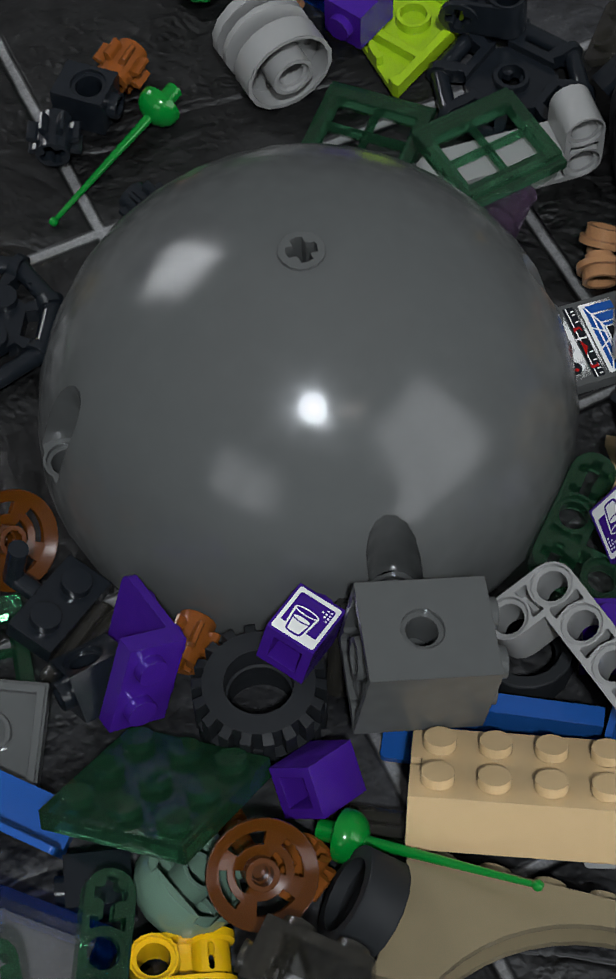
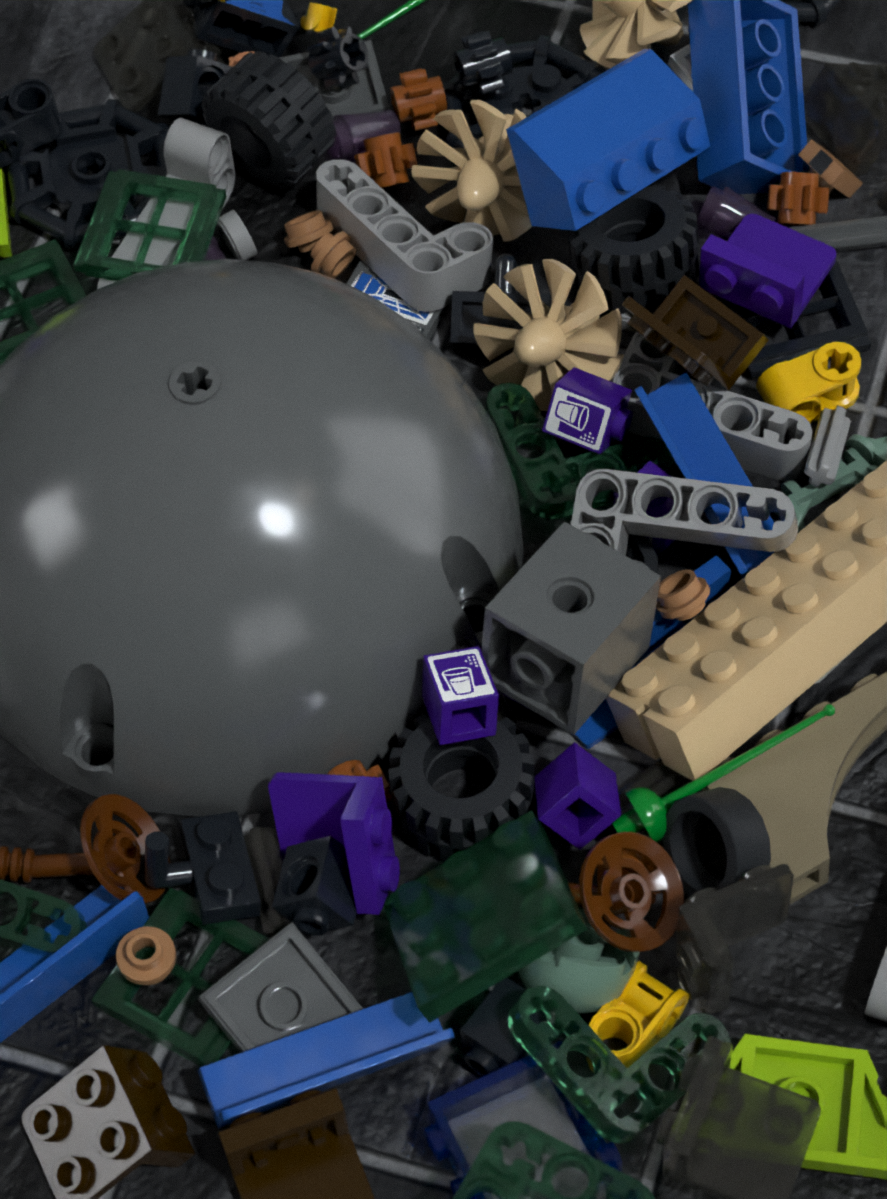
camera: 45 degrees left, 0 degrees up
(538, 710) = (682, 595): none -> medium nougat plate
(550, 203) = (236, 236): none -> light grey tile

